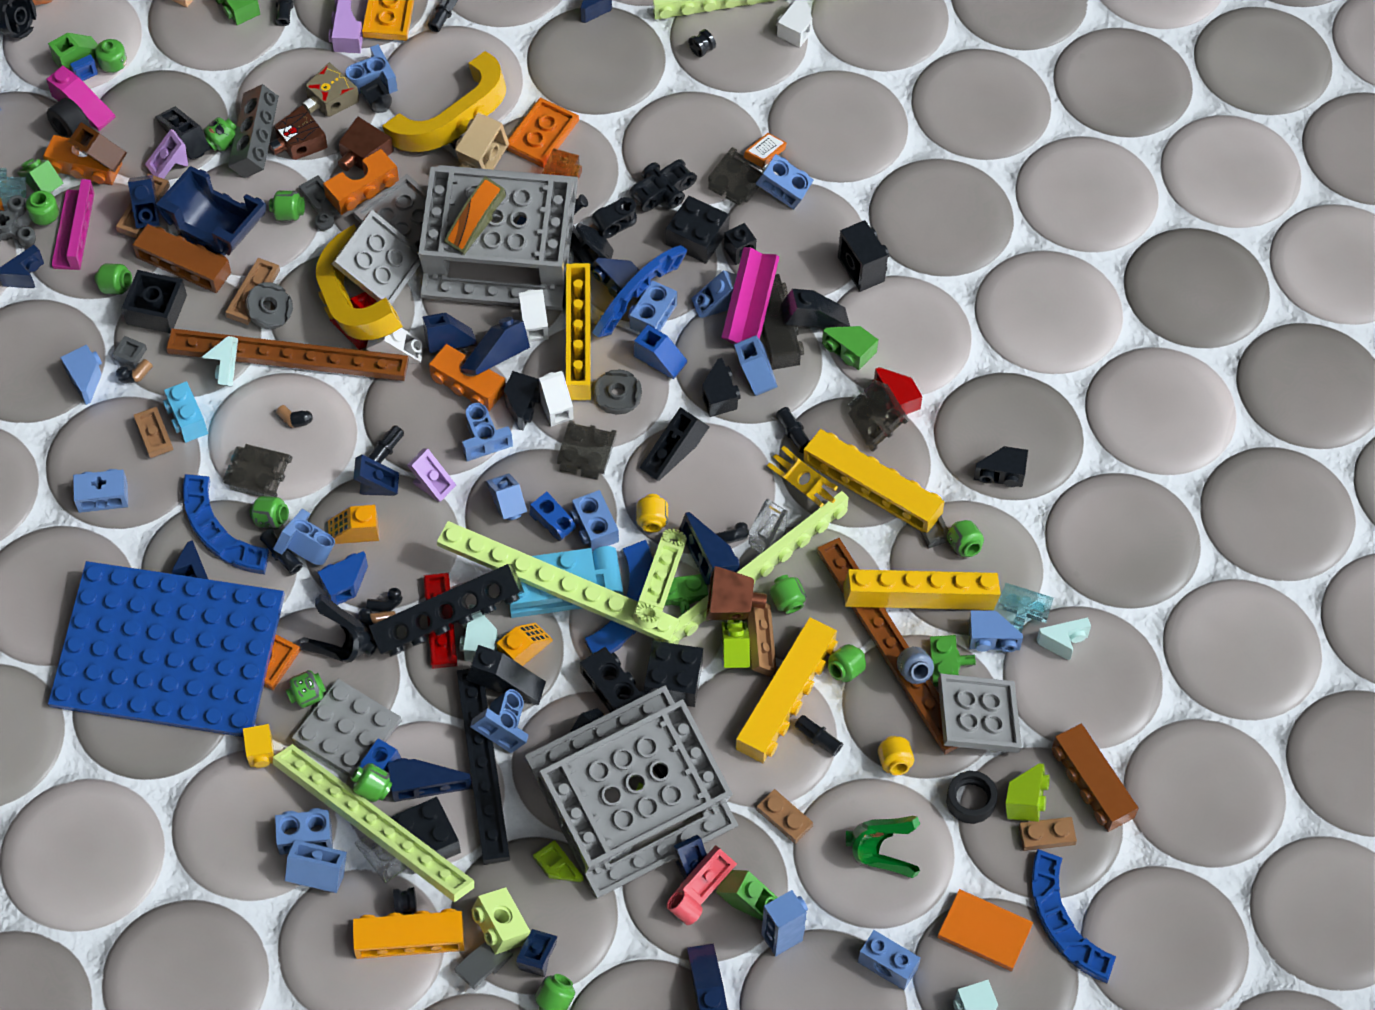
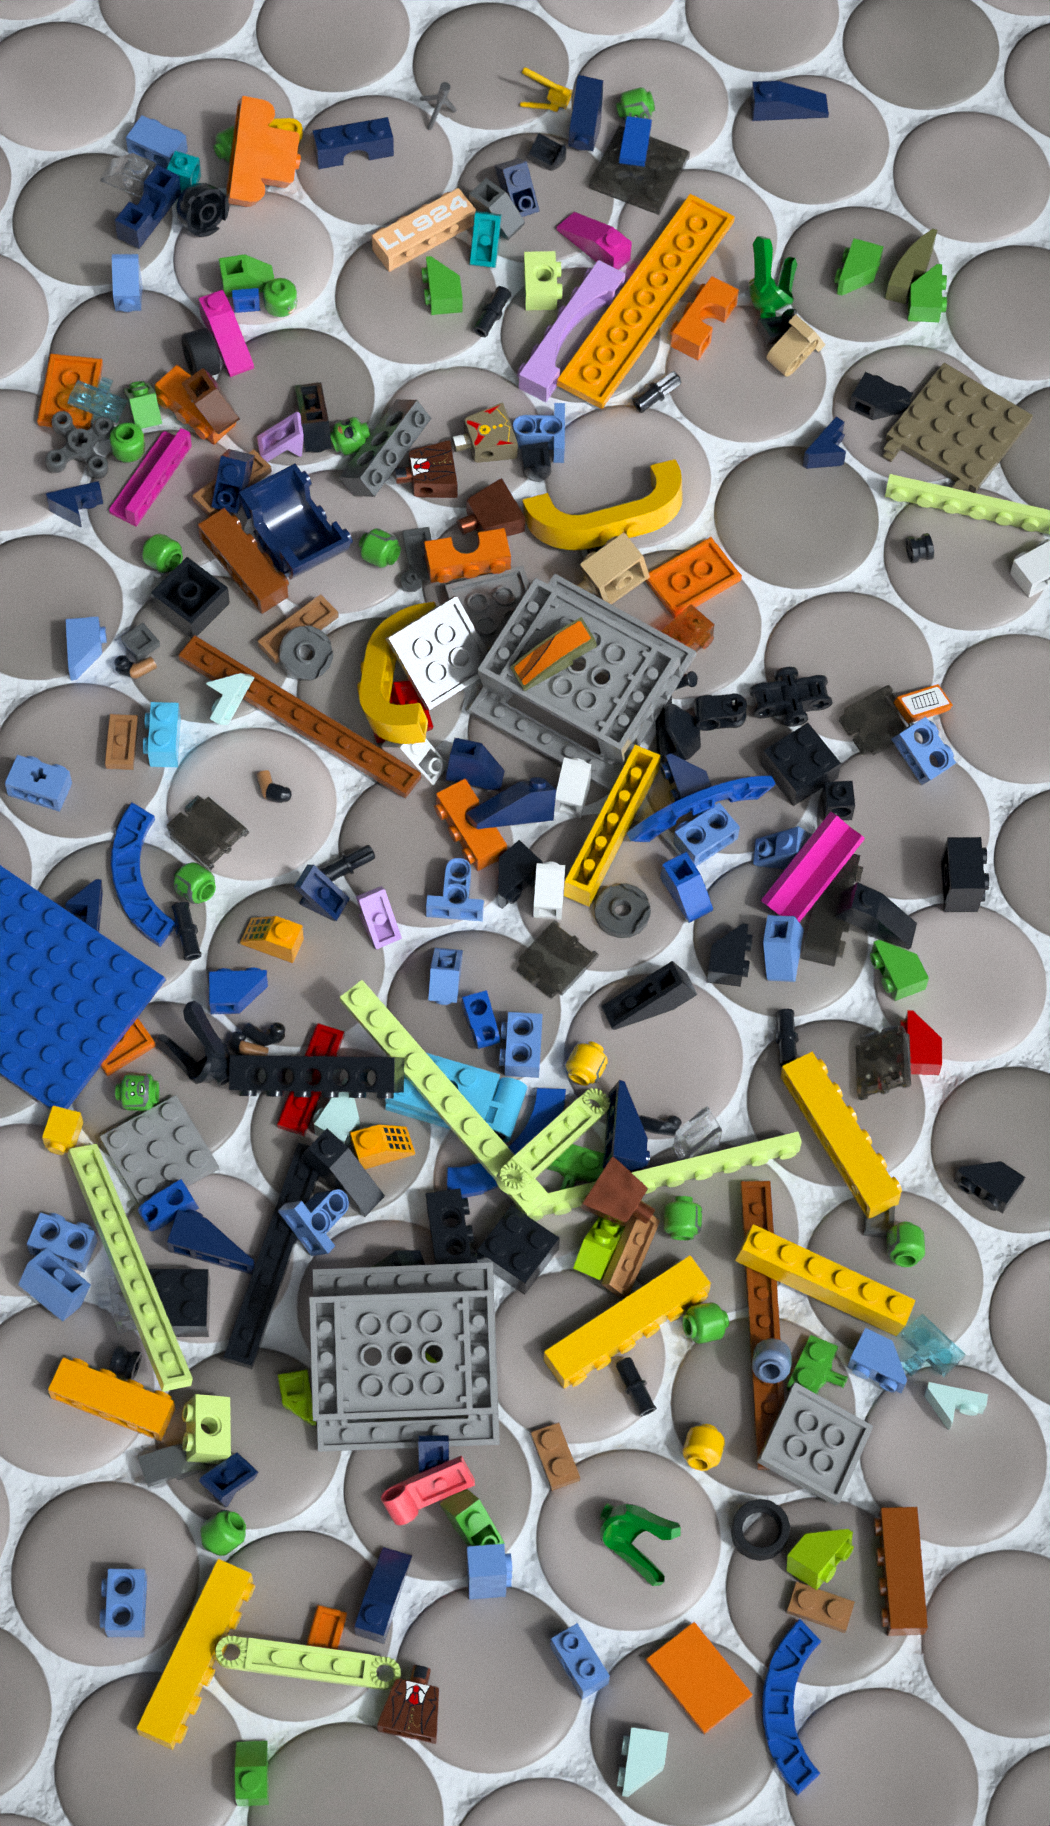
camera: 25 degrees right, 5 degrees up
(305, 539) = (214, 930): medium blue tile -> none
(371, 782) = (149, 1224): bright green head -> none
(796, 470) = (758, 1089): yellow piece -> none

